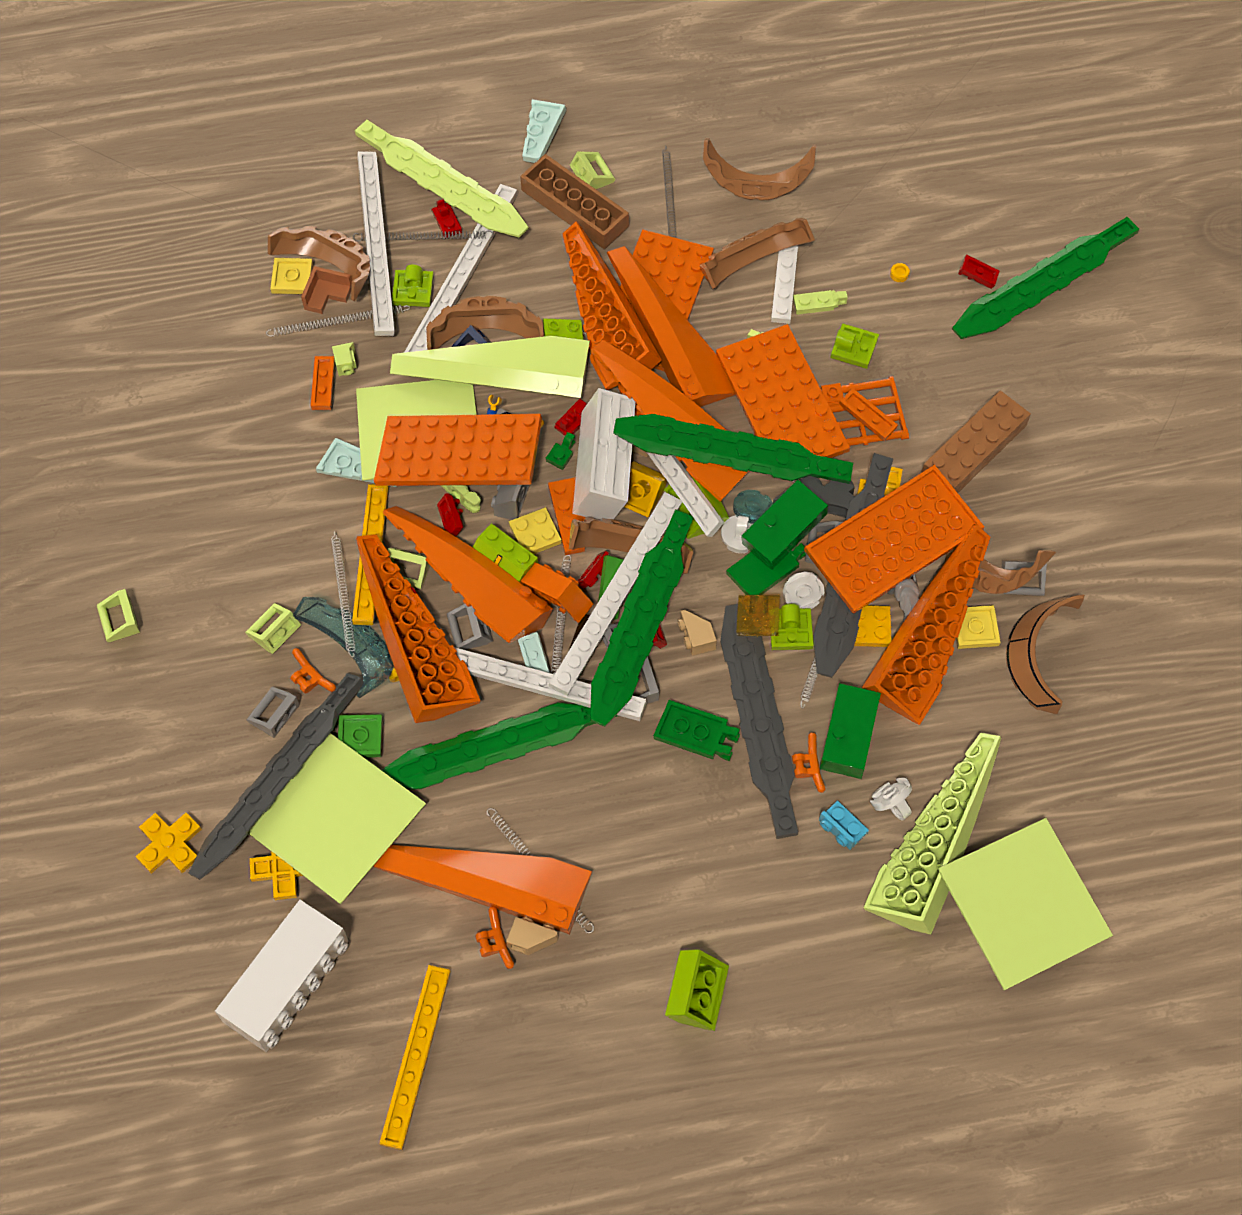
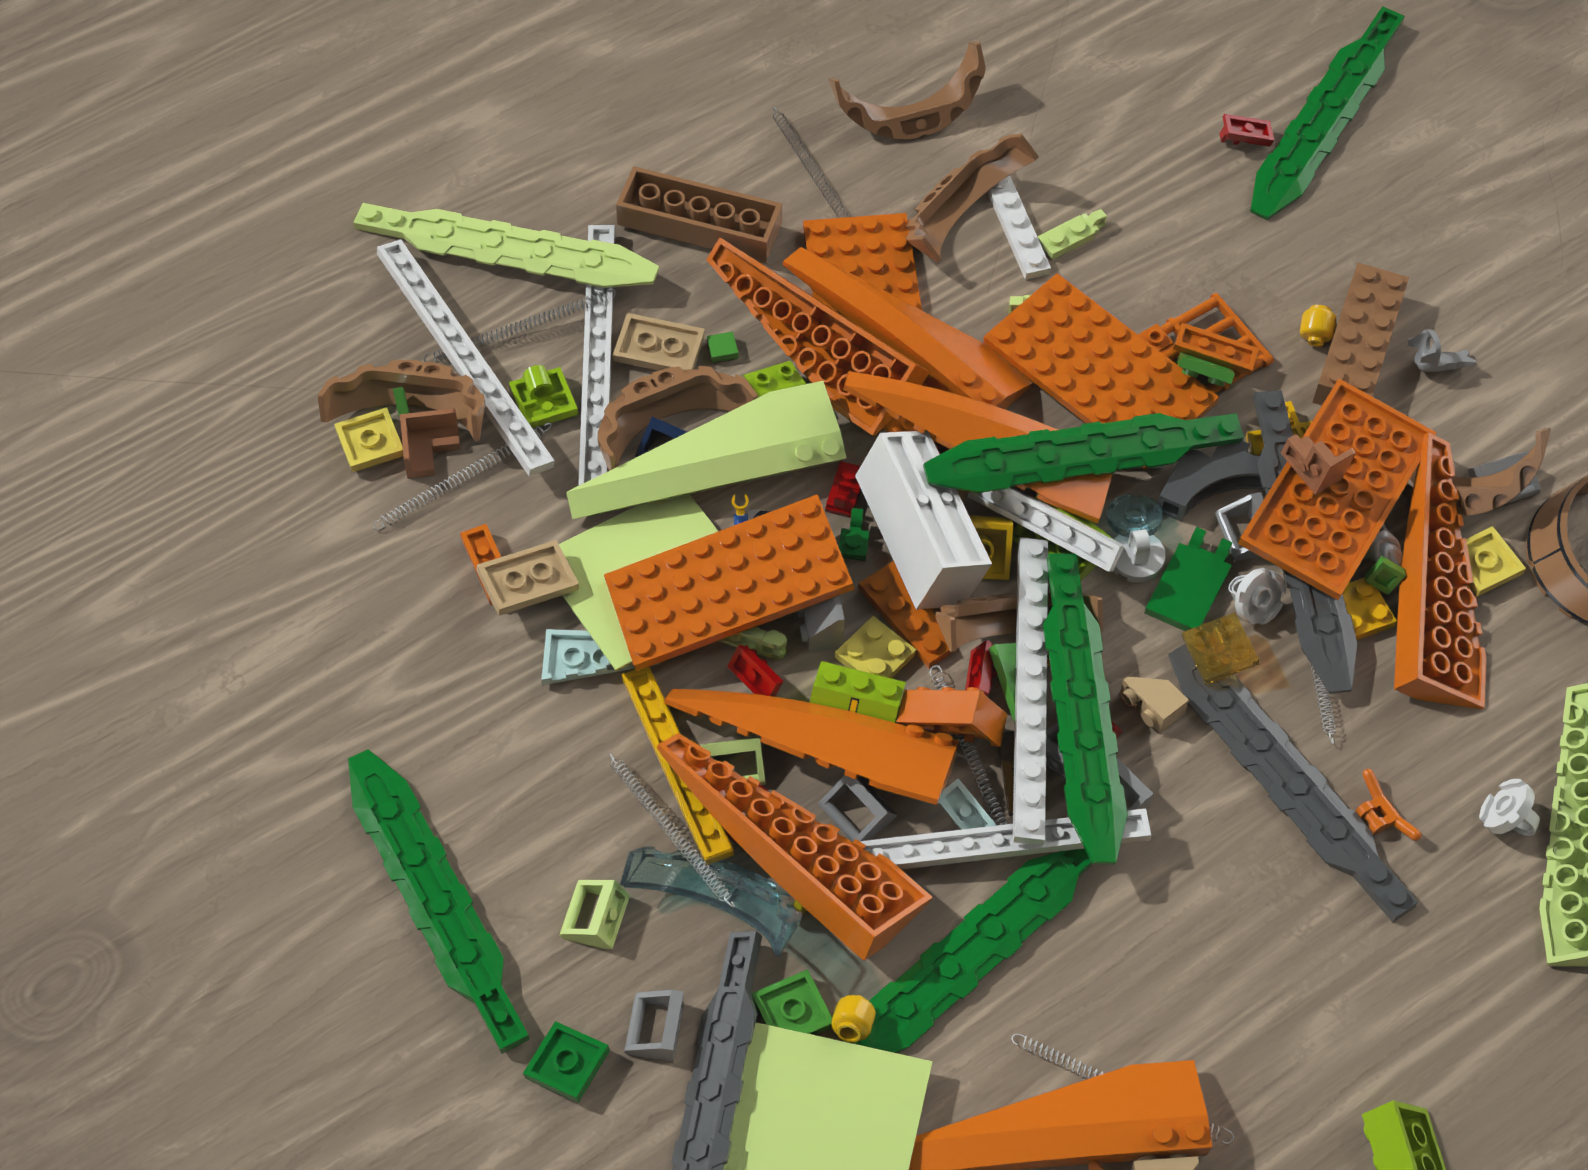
camera: 25 degrees left, 5 degrees down
(129, 628) = (382, 971): yellowish green tile -> none
(183, 577) = (434, 895): none -> green plate
(208, 711) = (566, 1062): none -> green plate
(307, 669) = (673, 950): orange piece -> none
(321, 257) = (400, 400): none -> bright green tile
(339, 400) = (527, 577): none -> tan plate
(345, 358) = (502, 522): yellowish green window -> none
(391, 756) = (853, 1018): none -> yellow head
(446, 218) = (537, 294): red plate -> none
(504, 278) = (658, 343): none -> tan plate
(541, 129) = (602, 136): light aqua wing -> none
(545, 295) = (722, 347): none -> bright green tile
(584, 170) = (683, 166): yellowish green tile -> none
(695, 731) = (1221, 826): green tile -> none
(784, 524) = (1195, 521): green brick -> none
(794, 629) = (1275, 649): lime plate -> none
(843, 825) = (1465, 871): medium azure bracket -> none
(850, 731) = (1411, 749): green brick -> none
(854, 346) = (1147, 272): lime plate -> none
(856, 430) = (1193, 366): none -> bright green plate
(881, 515) = (1316, 462): none -> nougat panel
(897, 609) = (1385, 575): none -> bright green tile
(899, 272) = (1150, 165): yellow tile -> none
(950, 423) = (1318, 325): none -> yellow head
(1021, 478) = (1433, 359): none -> light grey hair

